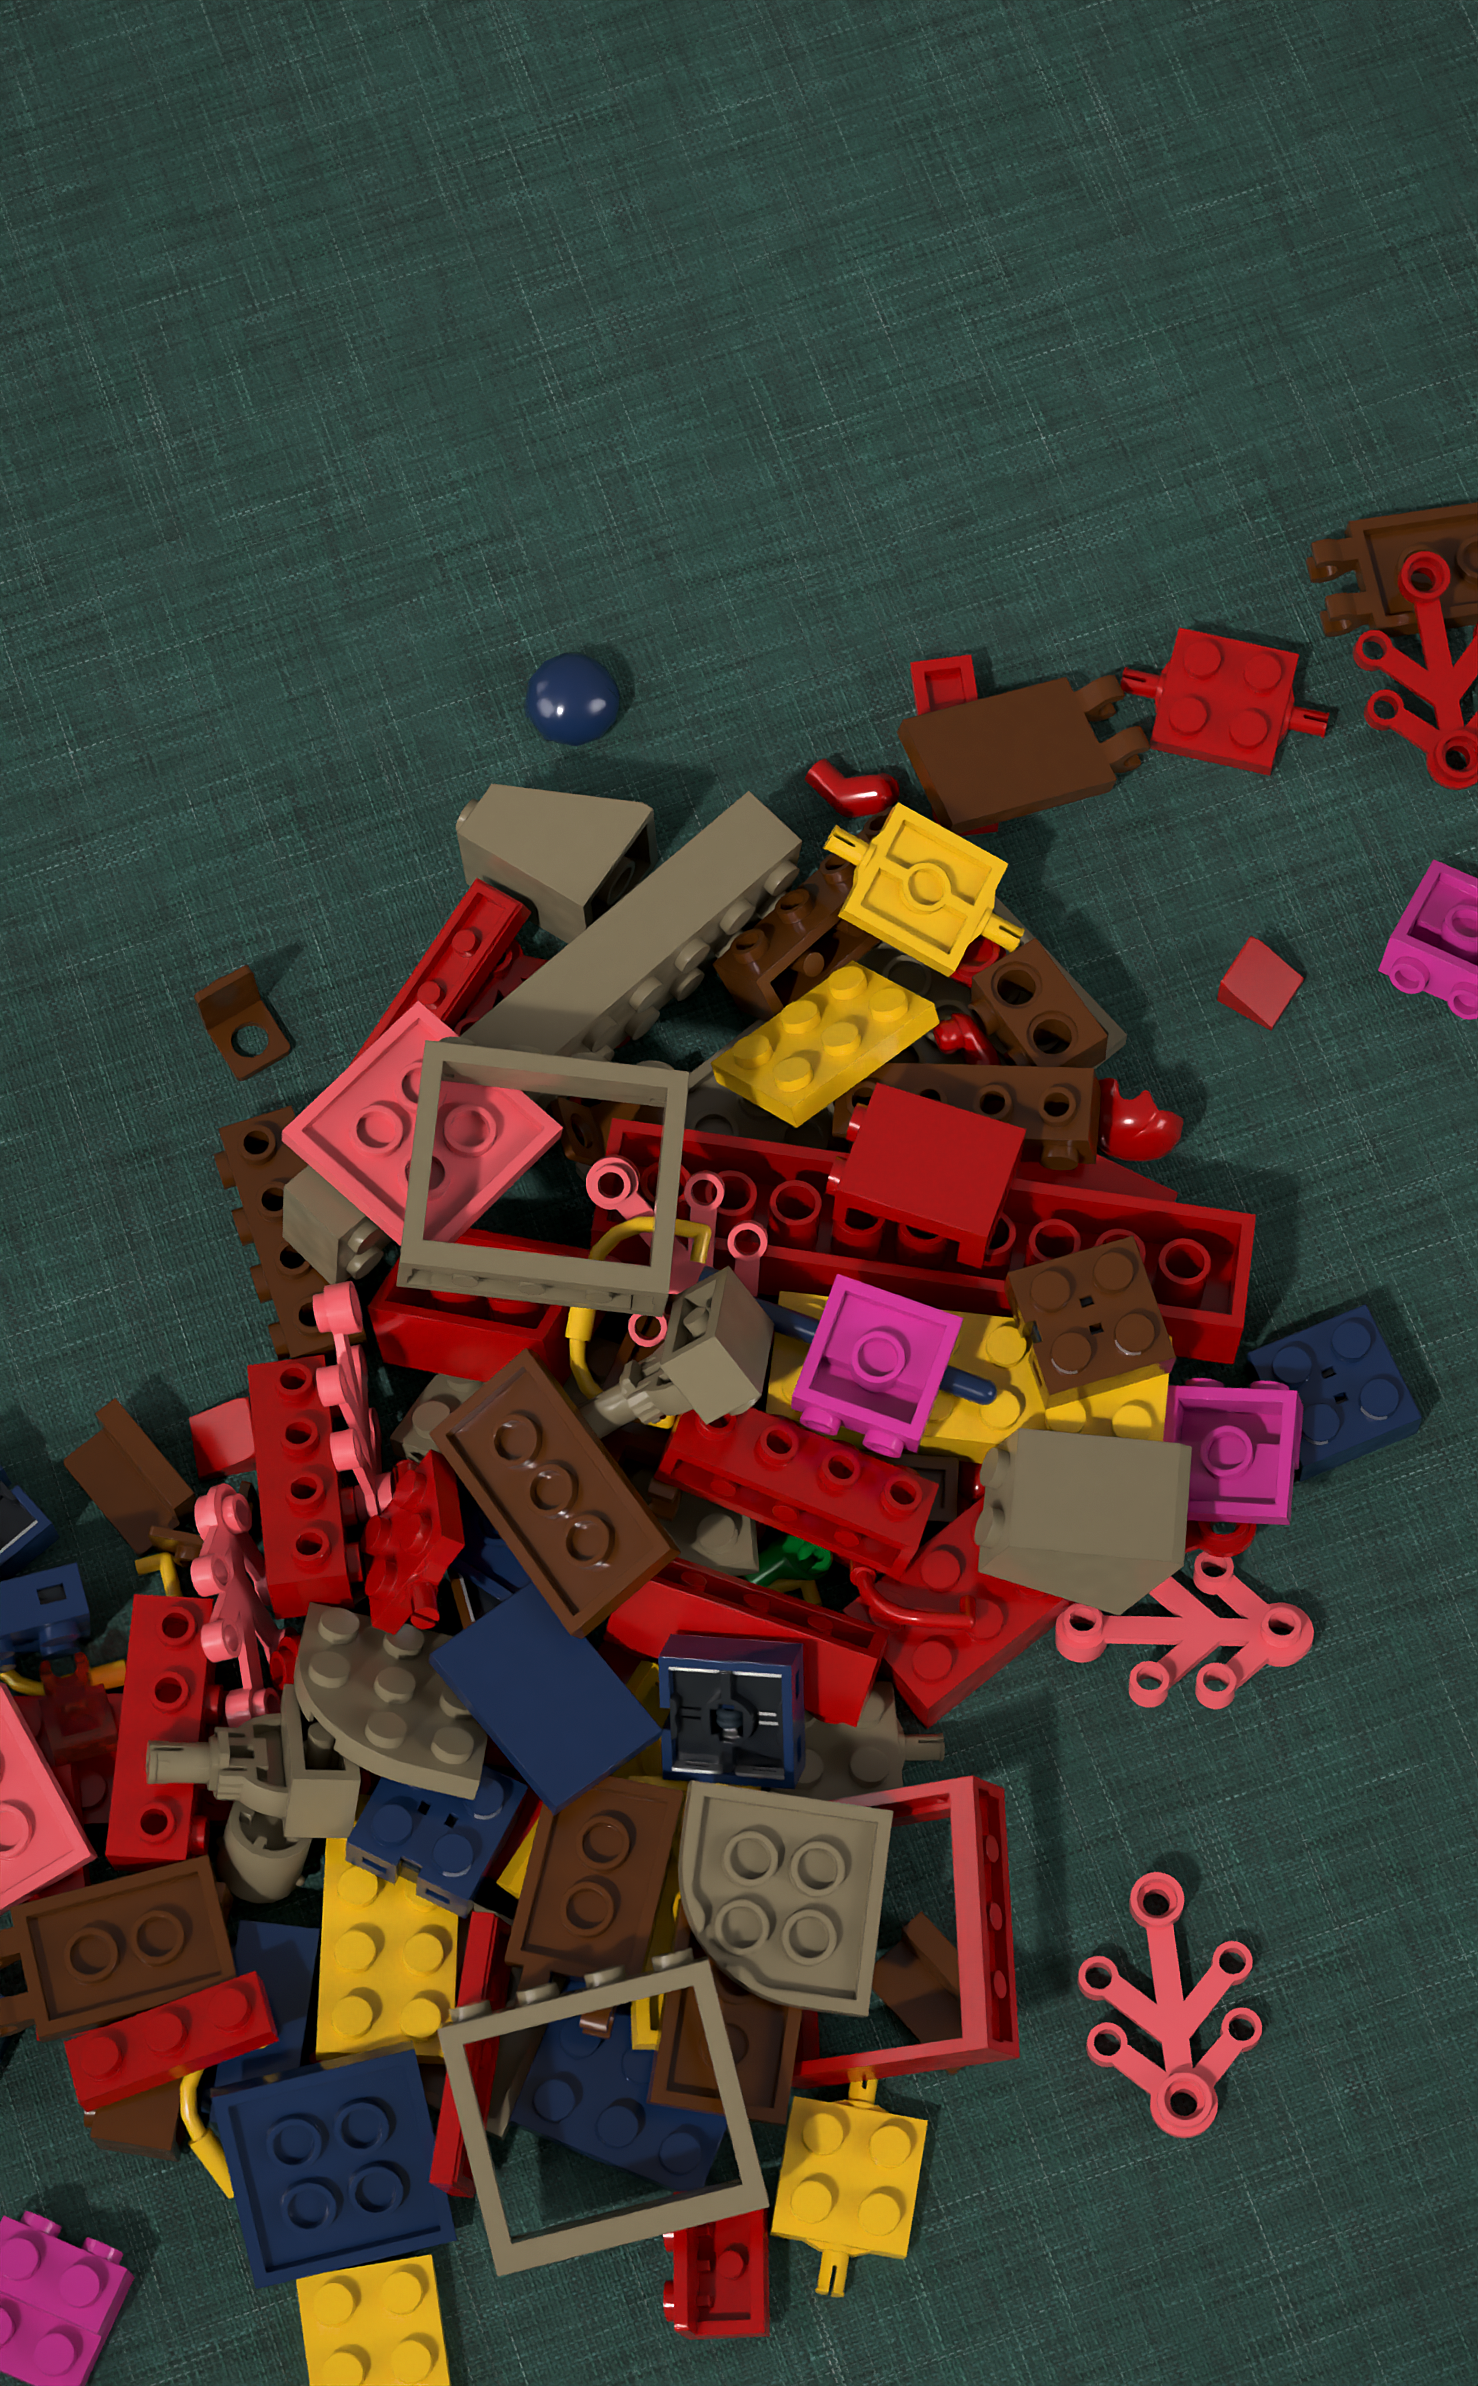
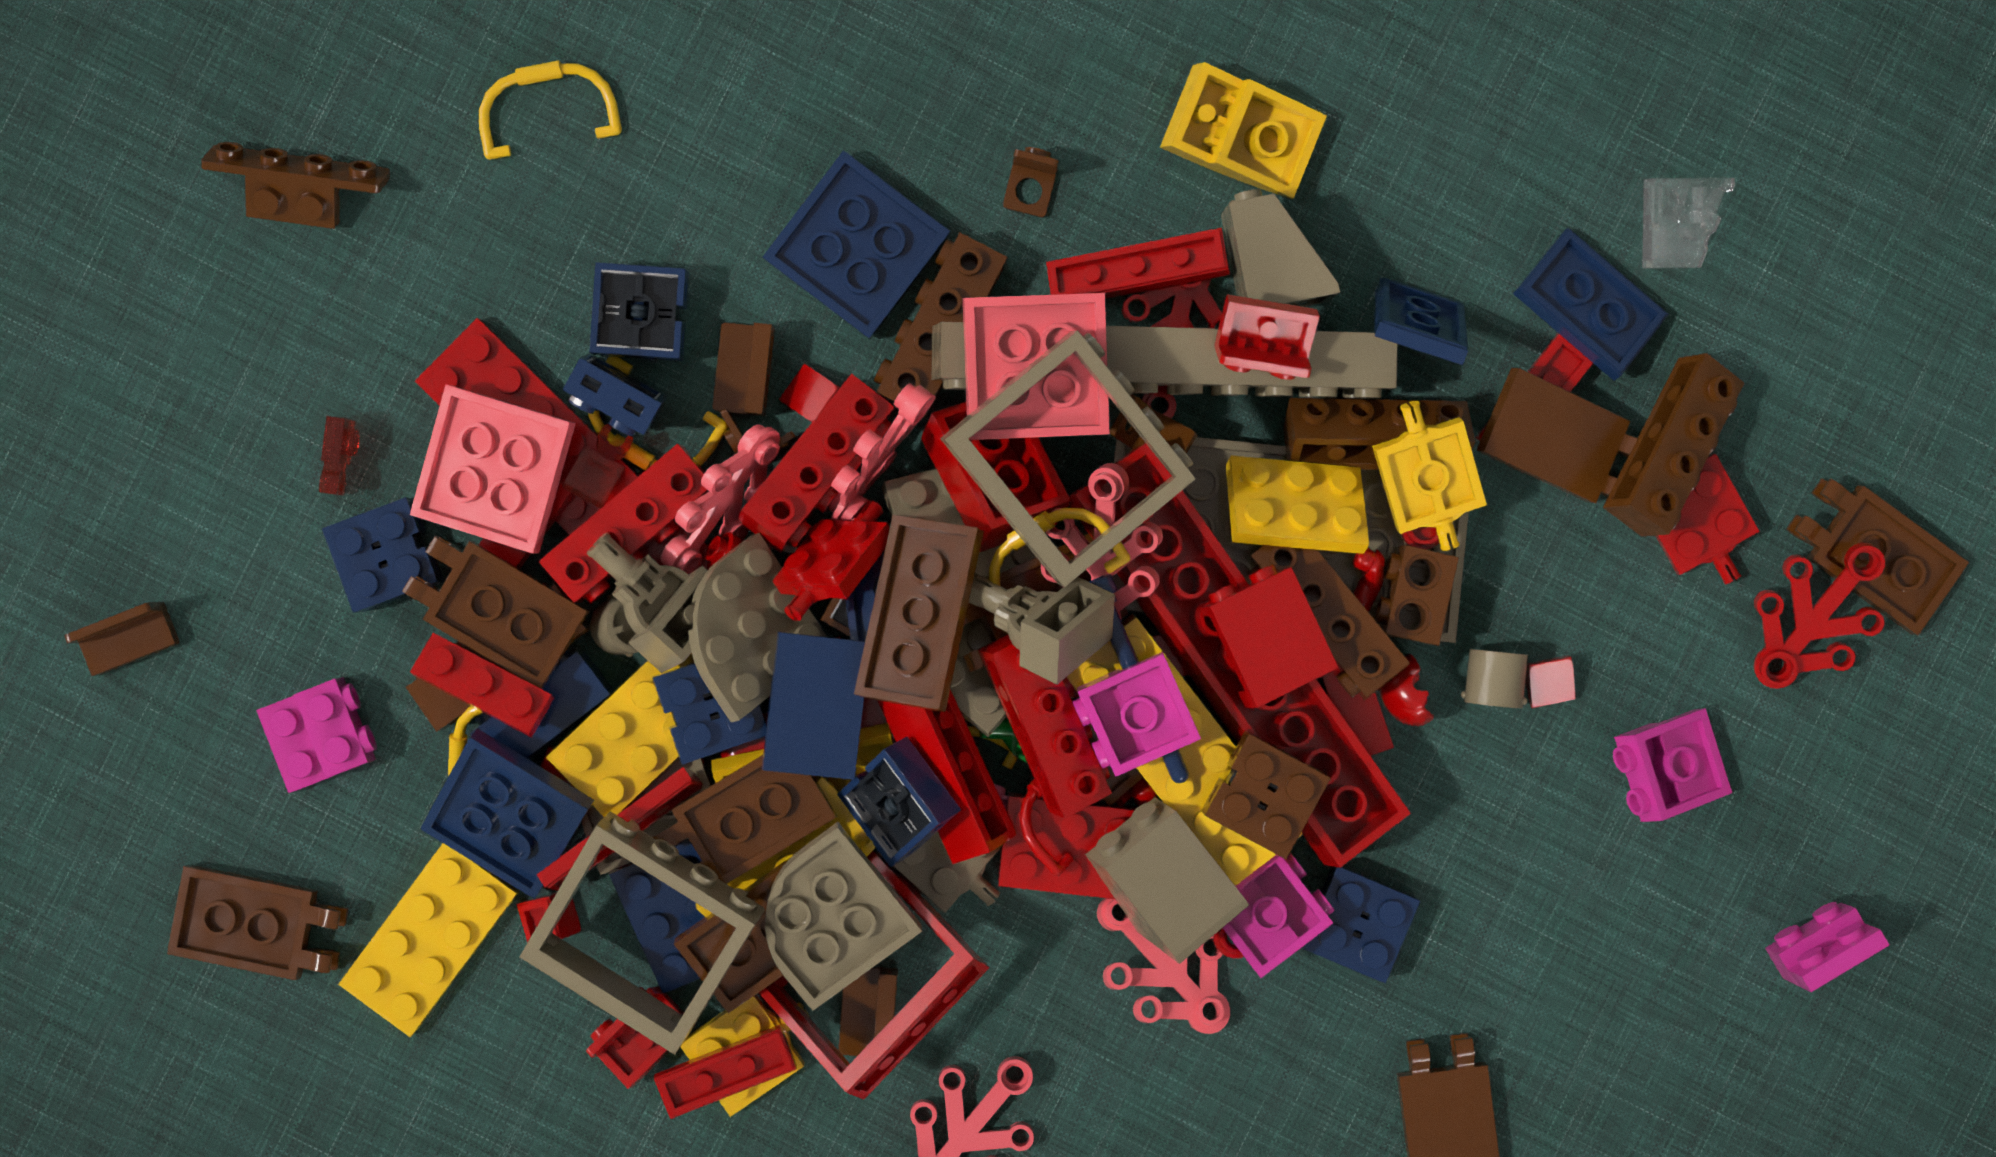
camera: 40 degrees right, 20 degrees up
(126, 1251) = (856, 245): none -> dark blue plate
(399, 780) = (1243, 130): none -> yellow slope
(473, 2260) = (534, 909): none -> red slope
(572, 699) = (1373, 170): dark blue hair -> none
(619, 899) = (1266, 337): none -> red bracket
(761, 767) = (1421, 320): none -> dark blue tile
(848, 2201) = (725, 1071): none -> red tile
(854, 795) = (1464, 378): red arm -> none
(911, 614) = (1590, 304): none -> dark blue tile
(913, 467) = (1680, 219): none -> clear slope
(1129, 651) = (1674, 445): none -> reddish brown brick
(1202, 1027) = (1496, 679): none -> dark tan piece

